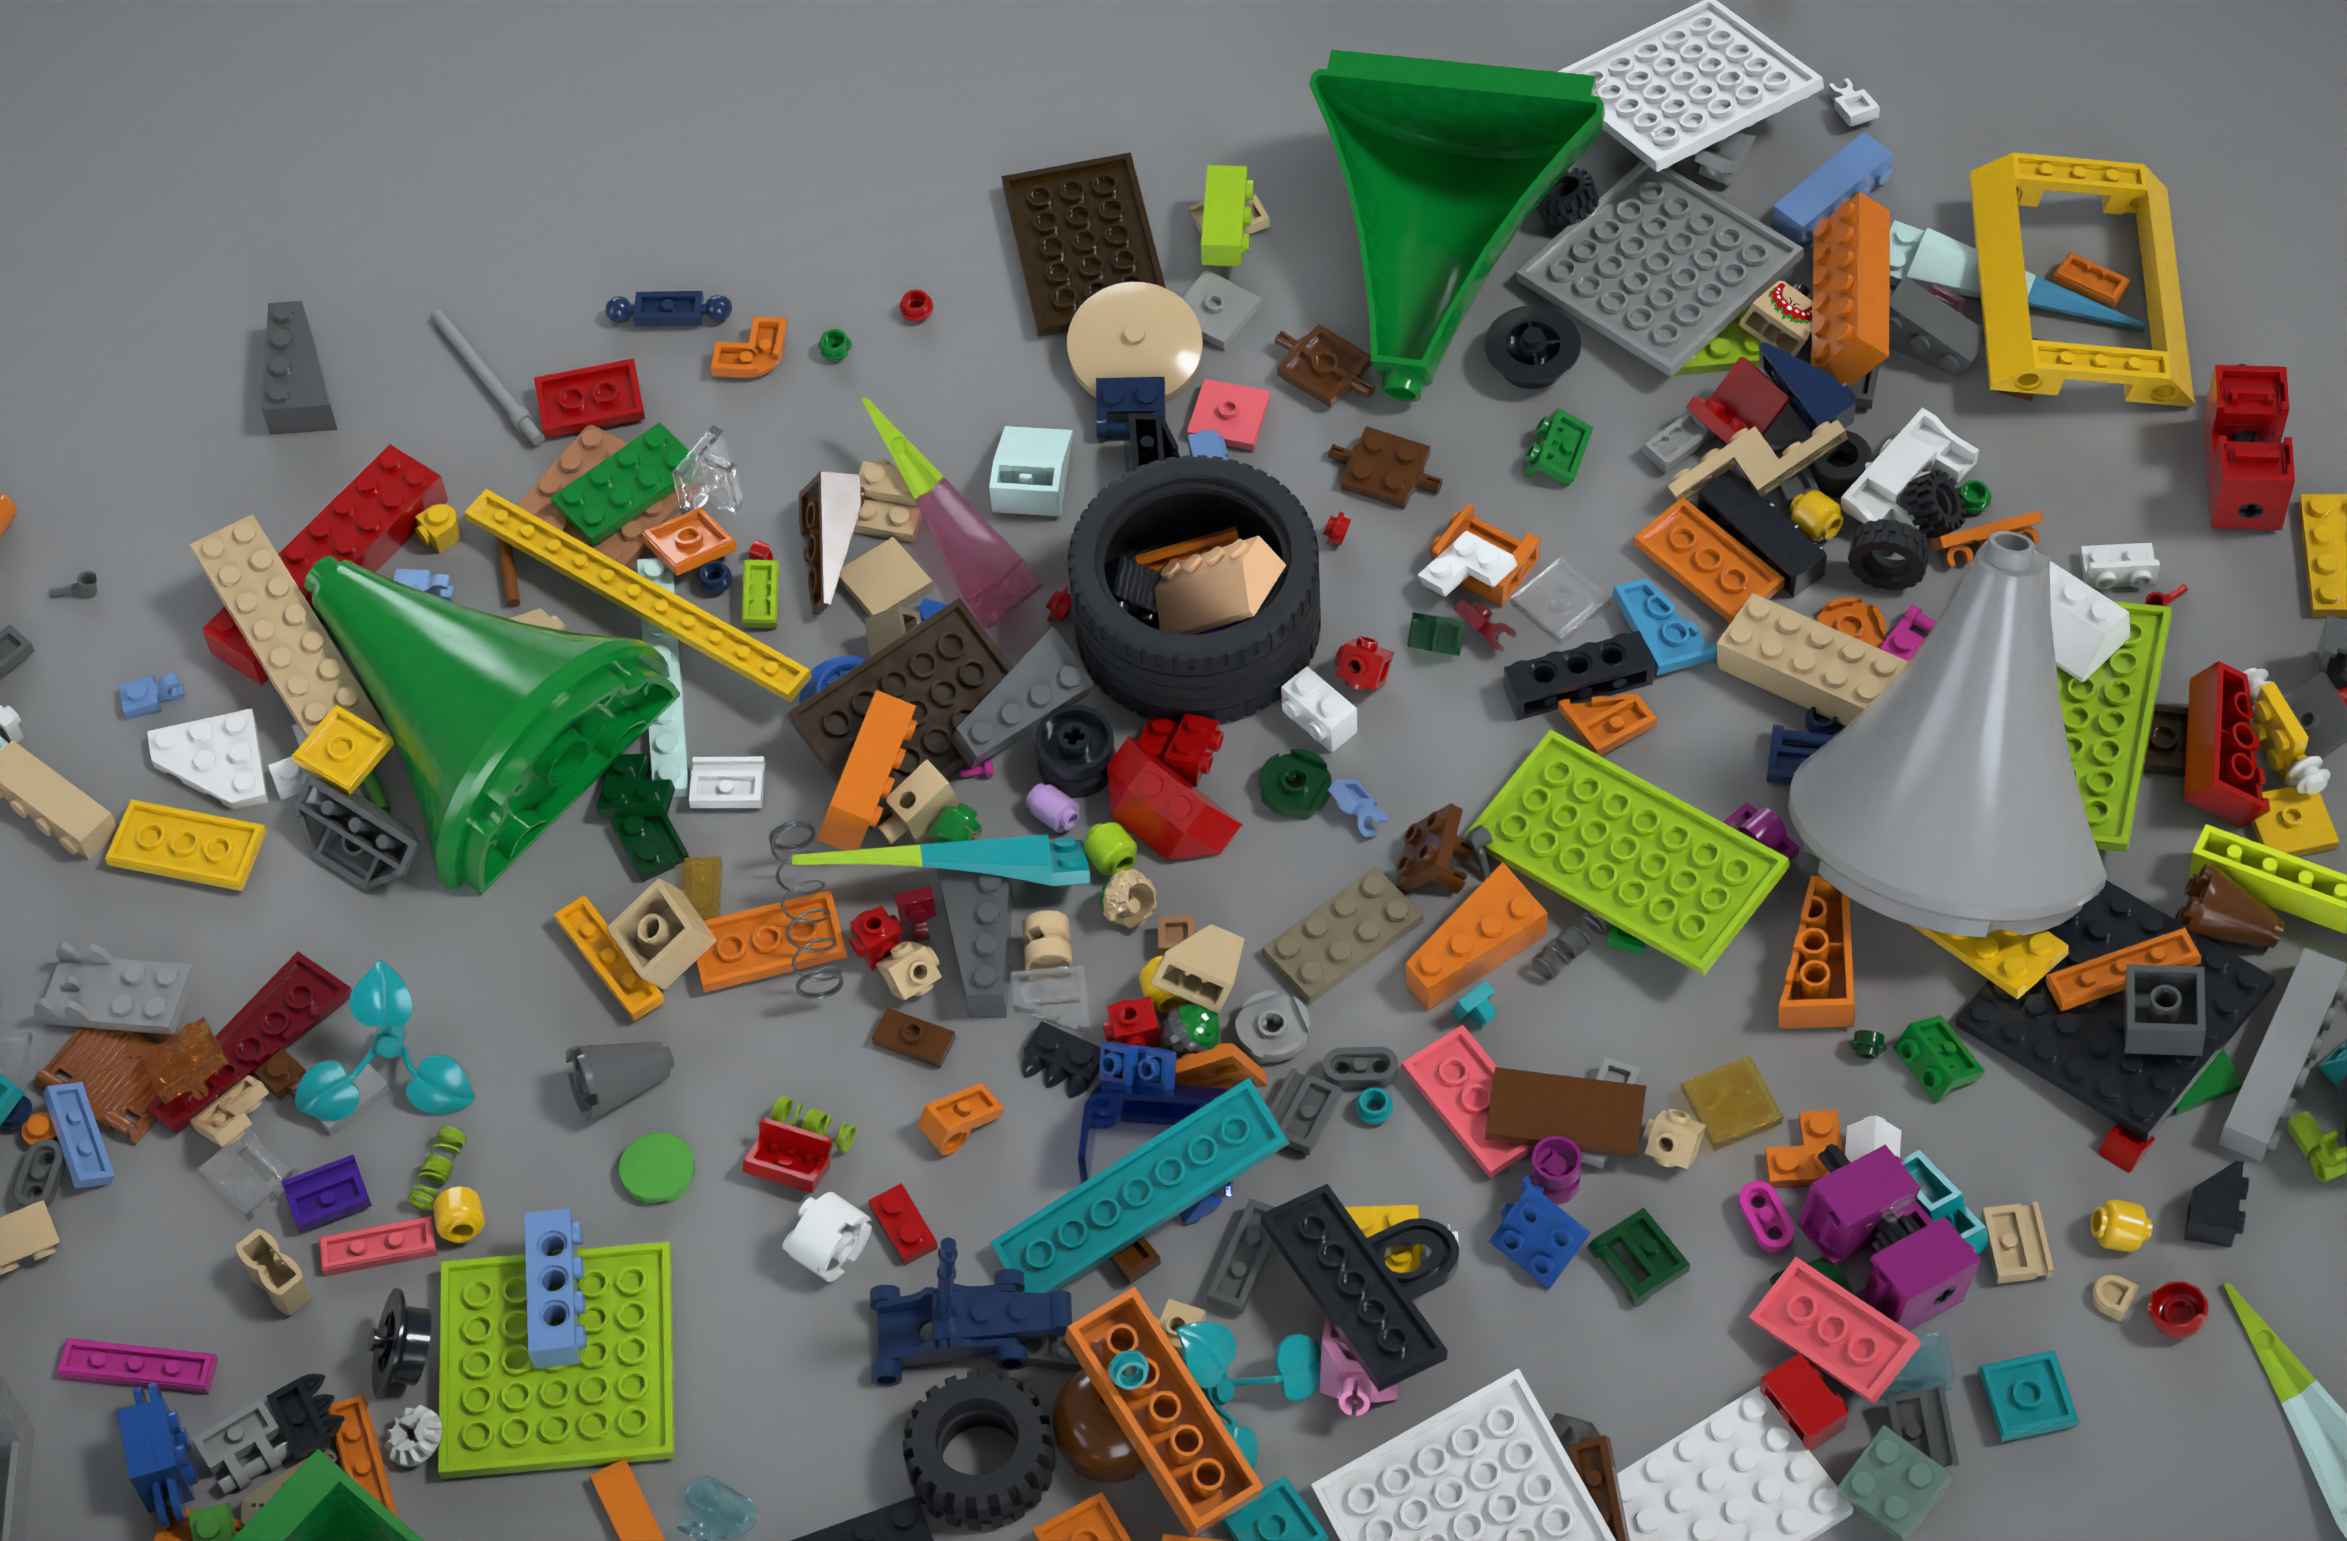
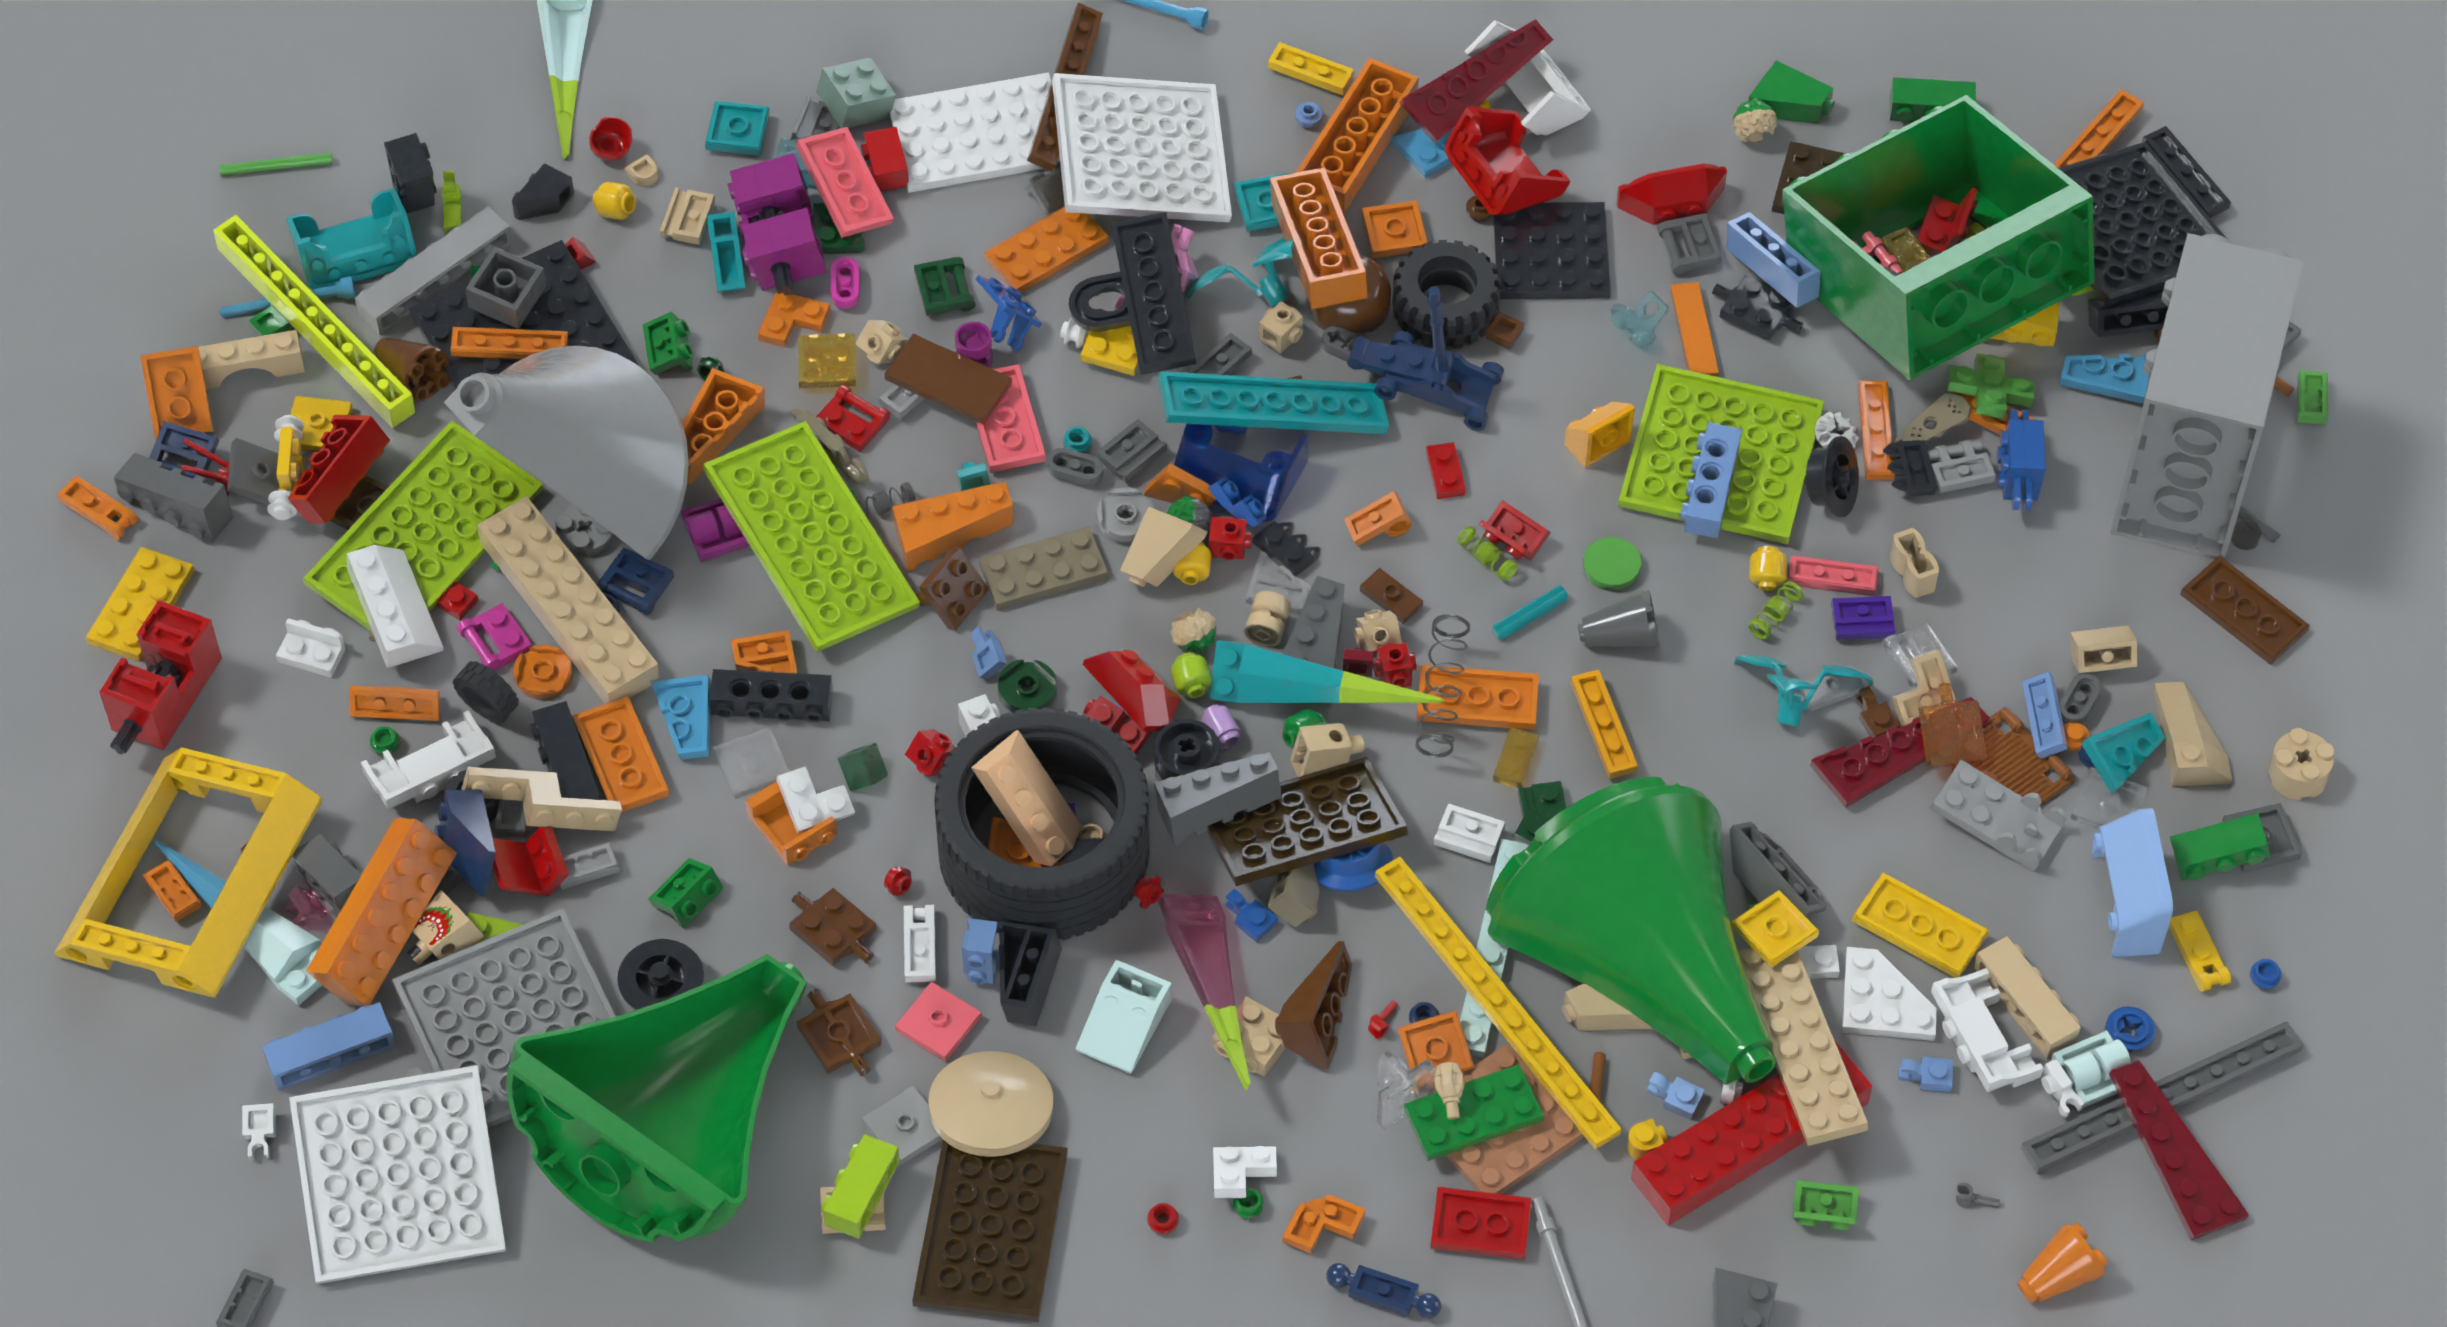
camera: 165 degrees left, 0 degrees up
(98, 733) = (1978, 1036): none -> white bracket
(137, 1365) = (2027, 548): dark pink tile -> none
(227, 508) = (1825, 1203): none -> bright green bracket
(653, 471) = (1450, 1086): none -> tan piece
(661, 934) = (1559, 706): tan brick -> none
(718, 1320) = (1600, 432): none -> light orange slope
(738, 1070) = (1530, 612): none -> teal axle
(760, 593) = (1390, 985): lime plate -> none
(828, 1235) = (1503, 457): white brick -> none
(860, 374) = (1237, 1163): none -> white plate
(868, 772) = (1359, 763): orange wedge -> none
(884, 578) = (1279, 967): tan tile -> none
(886, 1441) = (1504, 330): none -> reddish brown plate
(1127, 396) = (1015, 1051): dark blue plate -> none
(1132, 1377) = (1335, 233): teal plate -> none
(1173, 931) = (1167, 601): medium nougat plate -> none
(1277, 460) = (919, 944): none -> white plate
(1479, 618) = (825, 761): dark red plate -> none
(1479, 838) = (911, 585): dark grey hand -> none
(1548, 1347) = (1045, 248): none -> orange plate
(1664, 1034) = (849, 426): none -> red plate
(1671, 991) = (833, 446): none -> dark tan plate
(1816, 515) = (517, 753): yellow head -> none
(1869, 1135) = (750, 294): white brick -> none
(1935, 504) = (423, 725): black tyre -> none
(2164, 600) = (300, 613): red hand -> none

